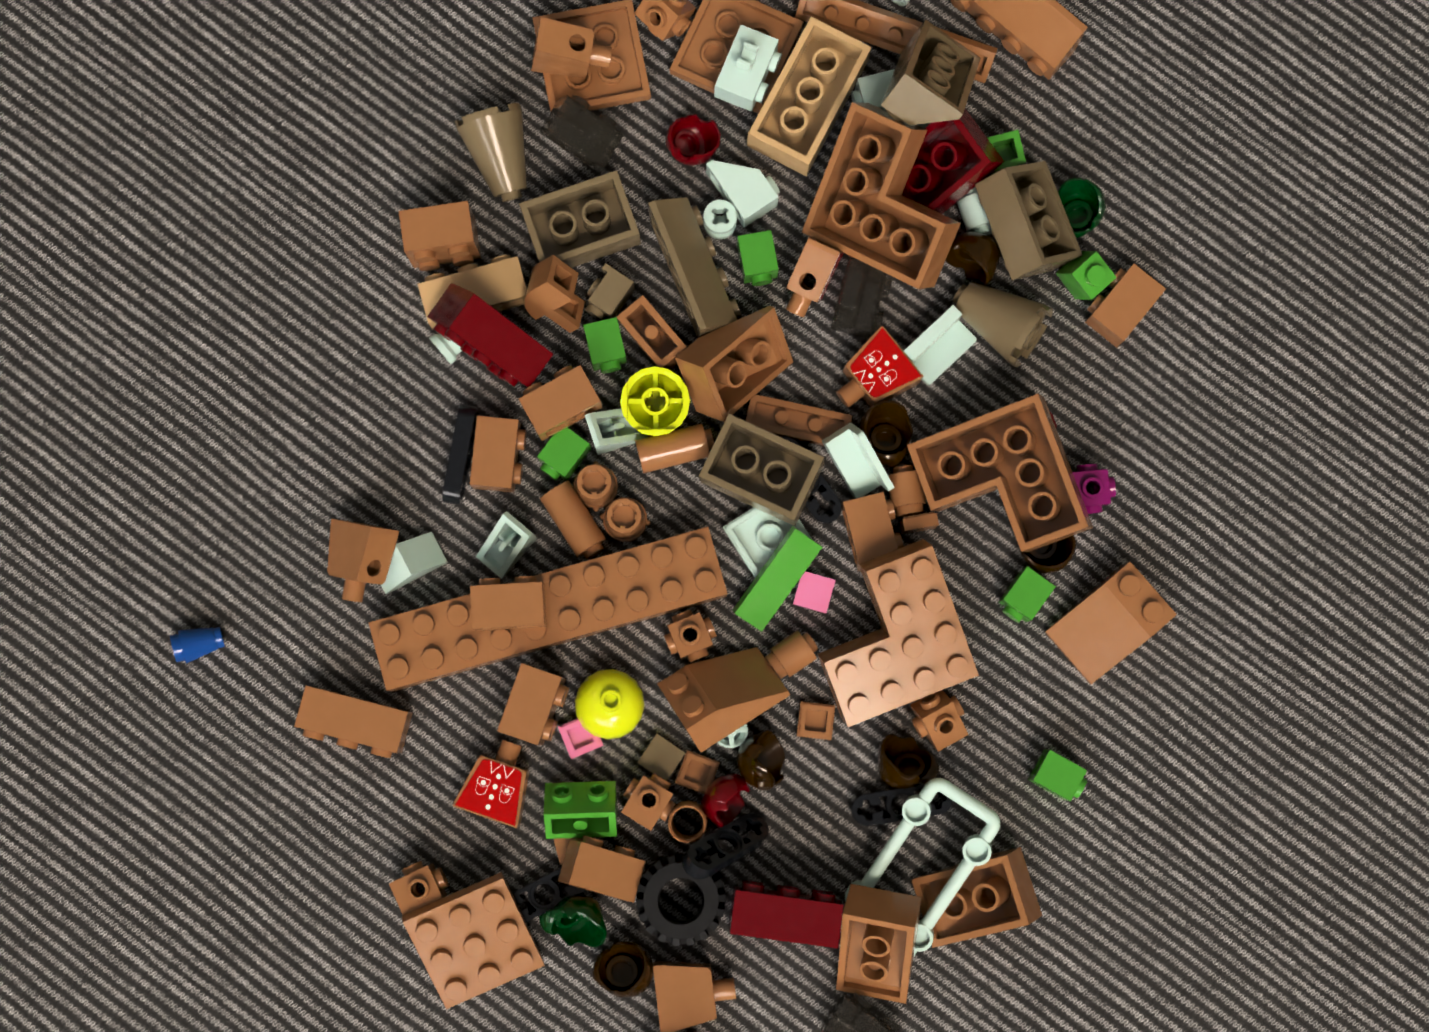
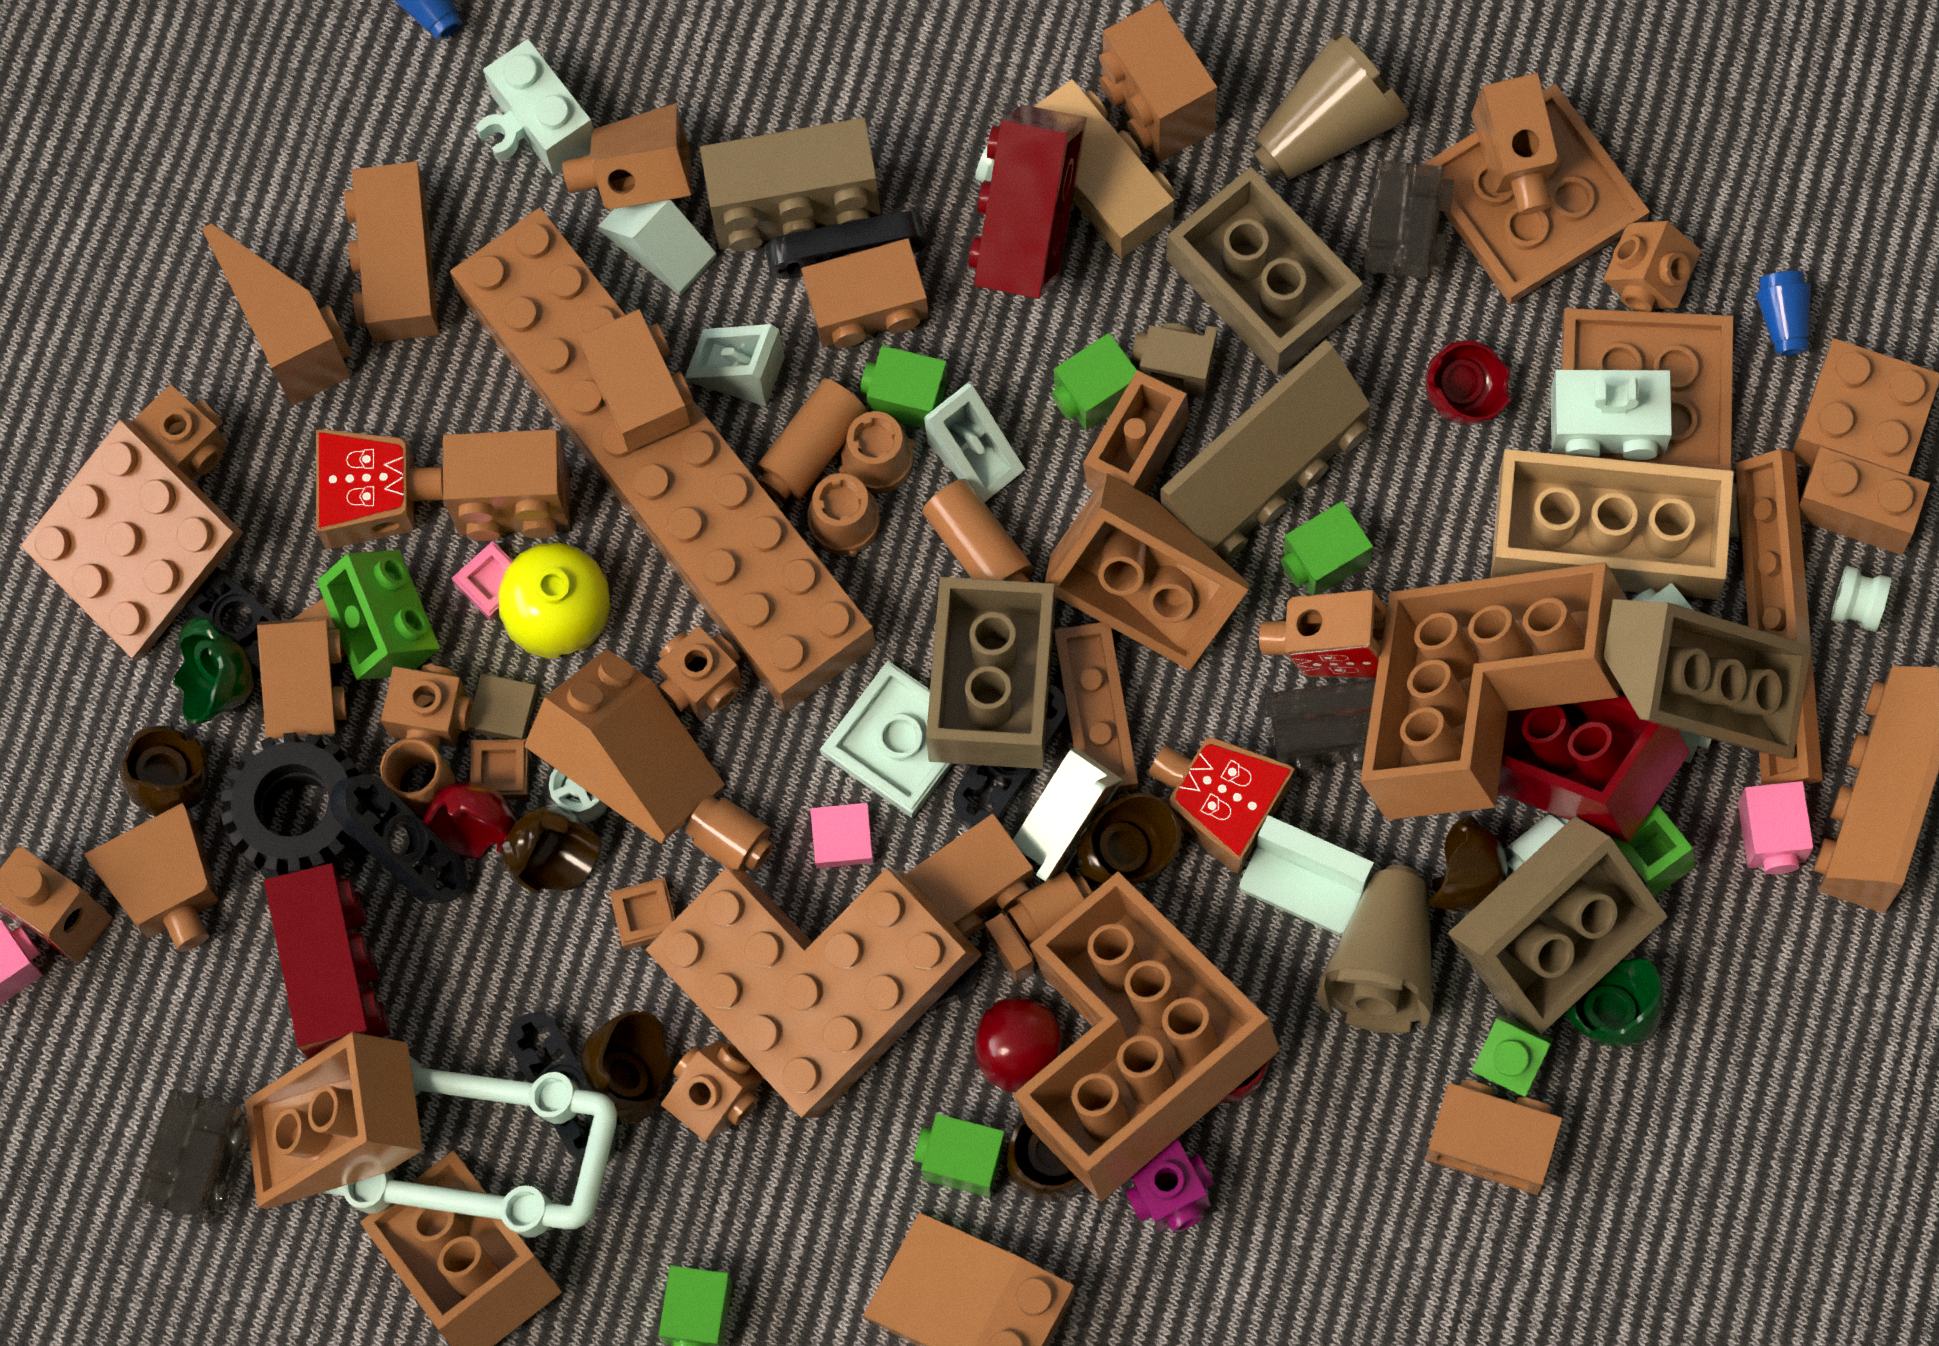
camera: 80 degrees right, 10 degrees down
(298, 602) = (534, 109): none -> light aqua brick
(378, 800) = (296, 336): none -> medium nougat slope
(415, 469) = (789, 182): none -> dark tan brick
(552, 294) = (1132, 271): medium nougat brick -> none
(560, 401) = (972, 339): medium nougat brick -> none
(655, 401) = (1033, 478): neon yellow cylinder -> none
(717, 226) = (1362, 487): light aqua wheel -> none
(745, 189) = (1422, 492): light aqua slope -> none
(777, 578) = (838, 767): bright green tile -> none
(972, 540) = (1016, 1041): none -> dark red hair
(1011, 84) = (1775, 826): none -> bright pink brick

